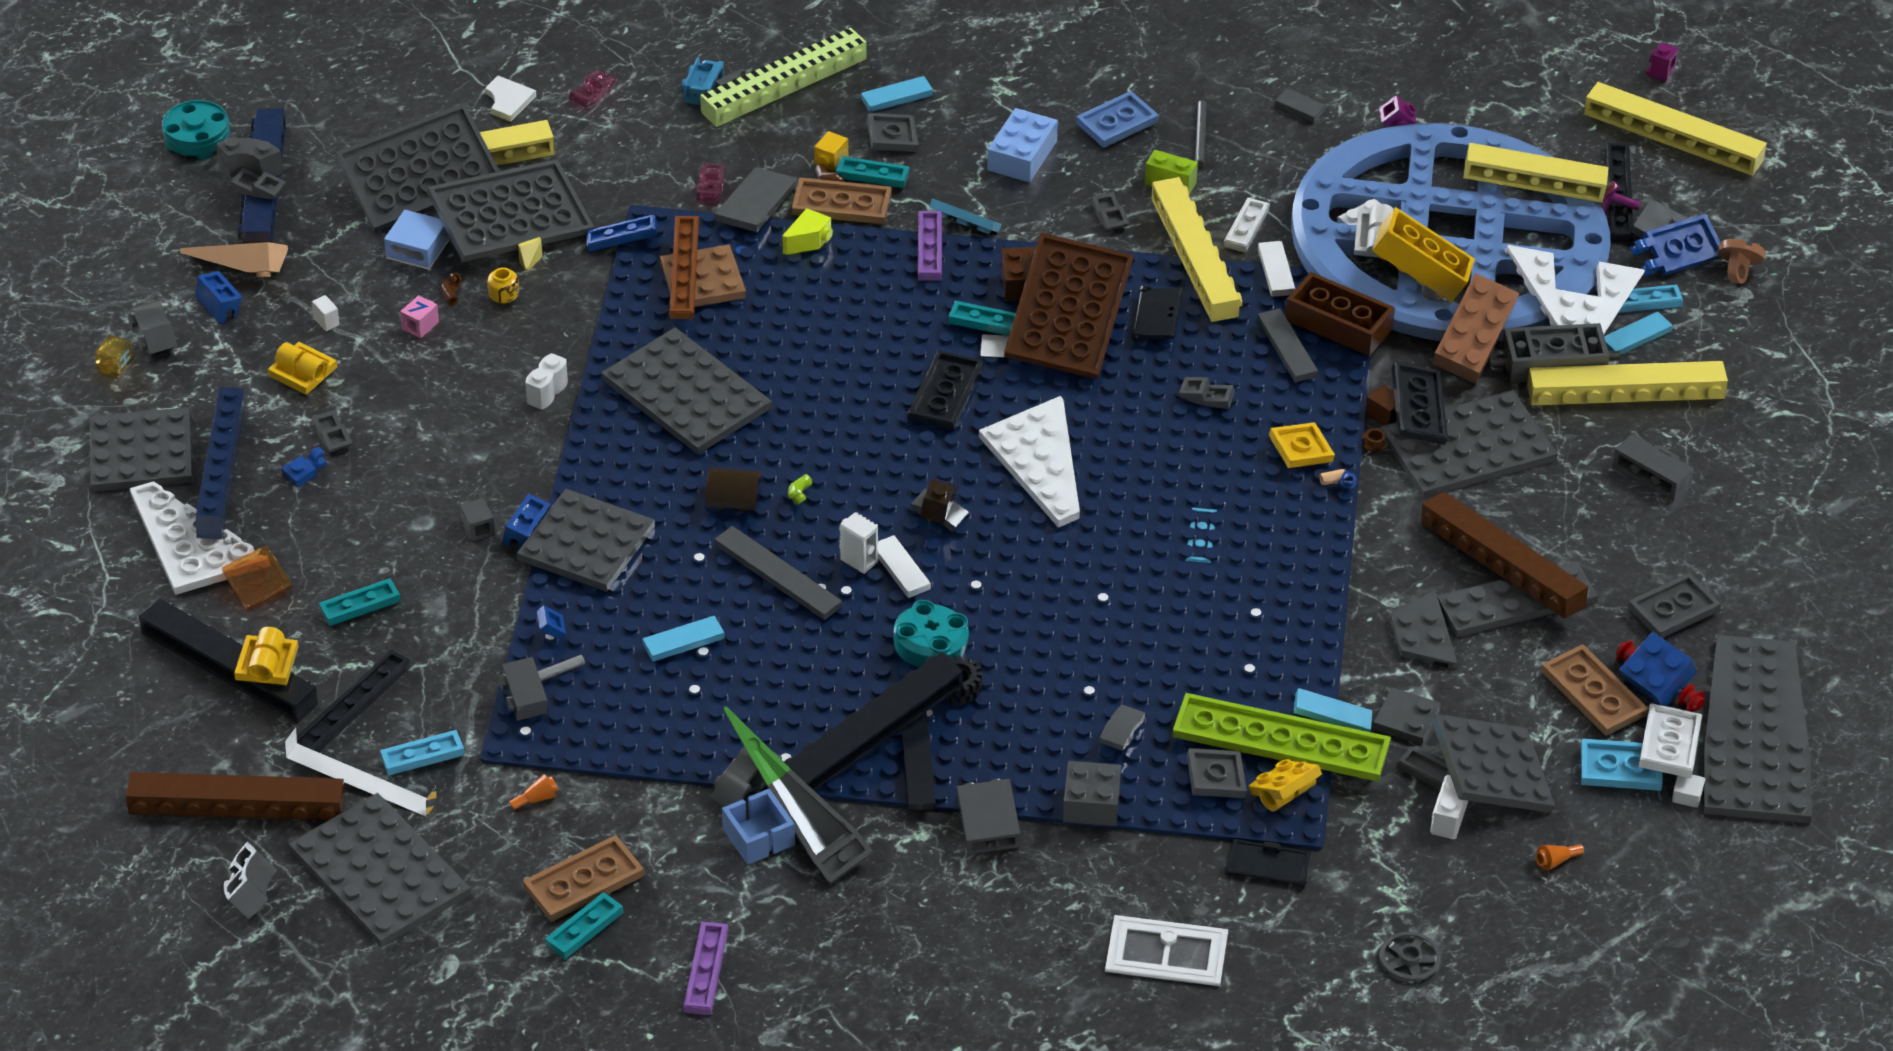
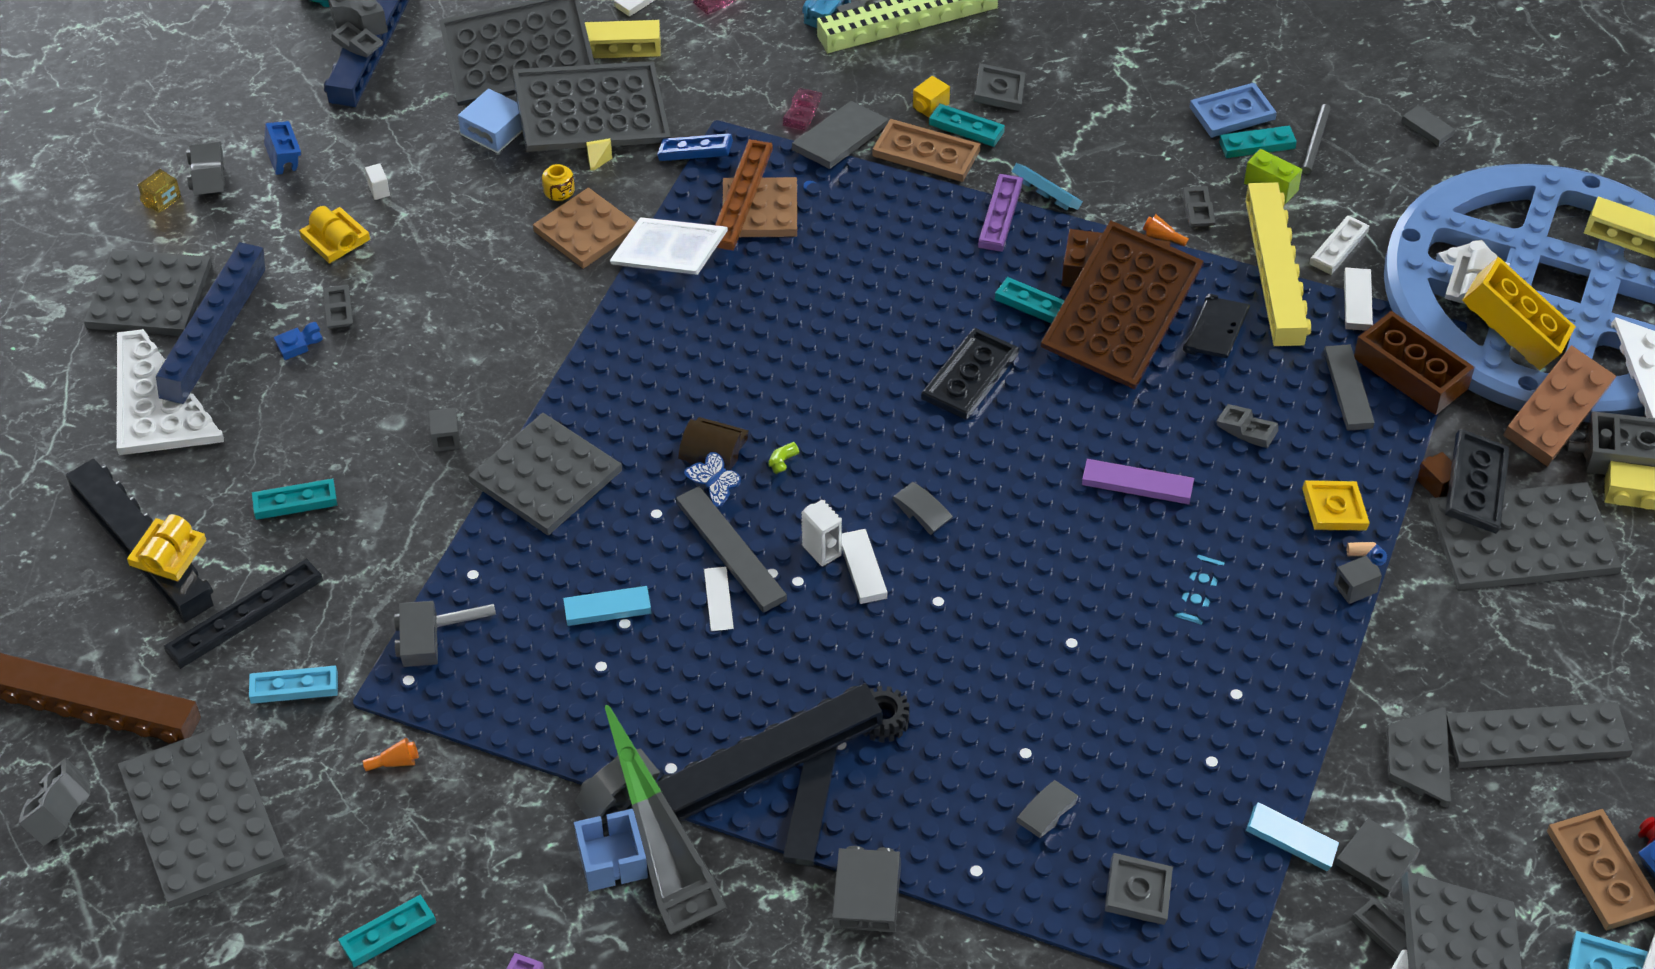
camera: 15 degrees right, 5 degrees up
(251, 257) = (323, 113): light nougat wedge -> none
(257, 578) = (202, 453): clear orange tile -> none
(358, 778) = (218, 699): white sticker -> none
(419, 316) = (467, 200): bright pink brick -> none
(450, 287) = (509, 175): reddish brown arm -> none
(525, 520) = (490, 439): blue hinge -> none
(541, 322) = (584, 227): none -> medium nougat plate
(546, 381) = (566, 291): white brick -> none
(551, 622) = (474, 561): blue plate -> none
(583, 878) = (406, 871): medium nougat plate -> none
(631, 324) = (668, 245): none -> clear door
(686, 390) = (703, 328): dark grey plate -> none
(745, 515) = (715, 477): none -> blue animal
(780, 616) = (718, 598): none -> white sticker
(807, 233) = (877, 178): neon yellow slope -> none
(823, 174) = (917, 120): reddish brown arm -> none
(896, 94) = (1016, 48): medium azure tile -> none
(929, 630) = (868, 653): teal piece -> none
(938, 500) = (921, 498): dark brown slope -> none
(993, 345) = (1034, 331): white sticker -> none
(1022, 145) = (1126, 121): light blue brick -> none
(1039, 456) = (1046, 466): white wing -> none
(1081, 235) = (1159, 229): none -> orange cone
(1092, 793) = (989, 886): dark grey brick -> none
(1123, 455) = (1138, 481): none -> medium lavender tile
(1145, 144) = (1251, 141): none -> teal plate
(1281, 736) = (1226, 859): lime plate -> none
(1284, 783) = (1212, 918): yellow plate -> none
(1336, 501) = (1357, 579): none -> dark grey brick
(1374, 440) = (1419, 513): reddish brown plate -> none
(1397, 112) = (1529, 150): magenta brick -> none
(1504, 555) = (1535, 683): reddish brown brick -> none

